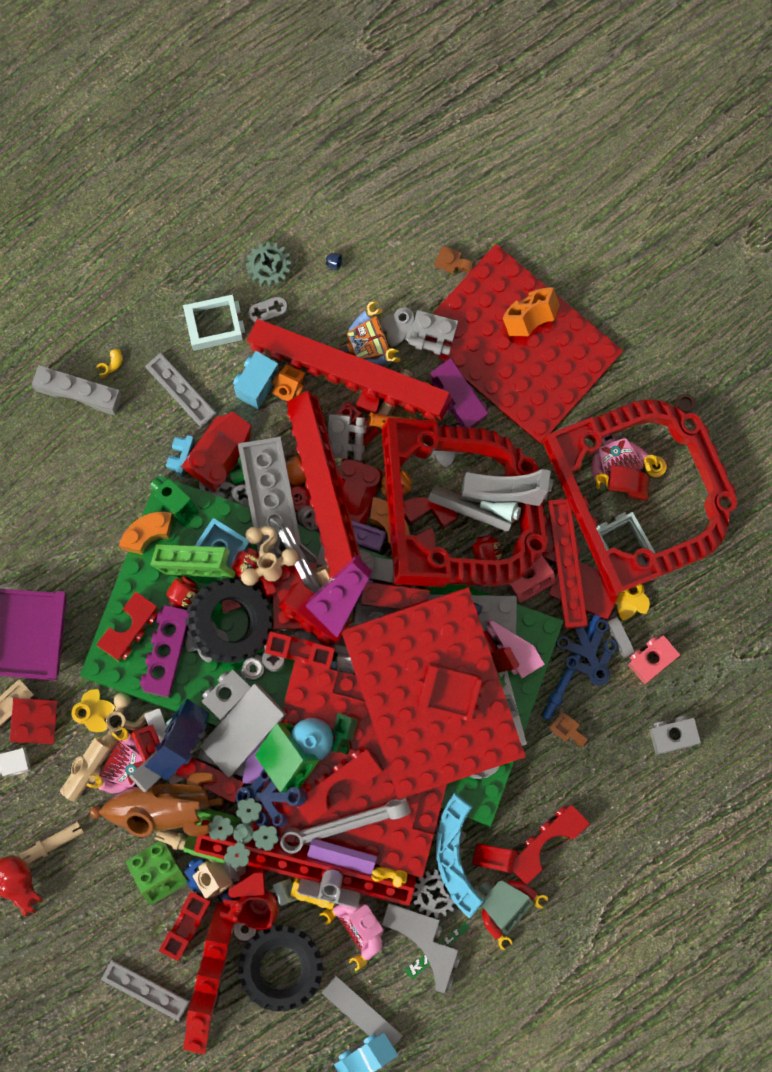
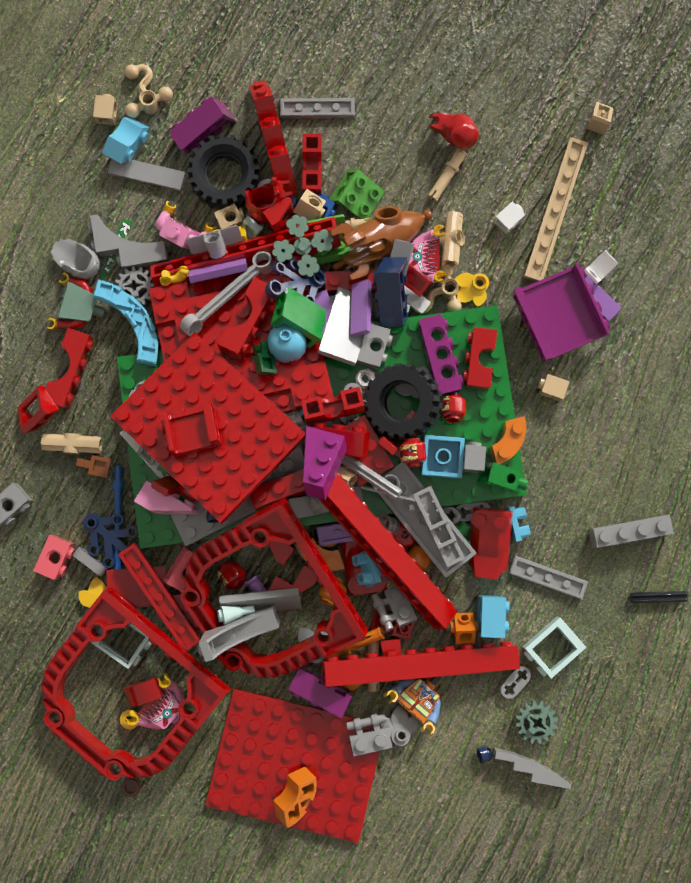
camera: 150 degrees right, 5 degrees up
(33, 720) = (513, 256): red plate -> none
(70, 567) = (553, 387): none -> tan brick
(85, 316) = (657, 597): none -> black axle
(116, 361) = (612, 570): yellow arm -> none
(190, 530) = (474, 458): none -> light grey brick
(192, 561) = (459, 433): bright green fence -> none
(218, 739) = (361, 308): none -> medium lavender tile
(260, 484) = (438, 526): none -> light grey slope
(268, 564) = (381, 472): tan piece -> none
(277, 1034) = (201, 123): none -> magenta wedge
(293, 220) = (537, 772): none -> light grey slope
(310, 915) = (222, 214): none -> tan brick
(350, 480) = (370, 571): none -> medium azure hips
(450, 260) = (389, 807): dark orange plate -> none
(468, 527) = (255, 585): none -> medium lavender bush
(482, 956) = (75, 258): none -> light grey hair
(494, 857) = (103, 336): red tile -> none
(581, 765) = (71, 443): none -> tan piece
(585, 815) = (47, 409): none -> red tile

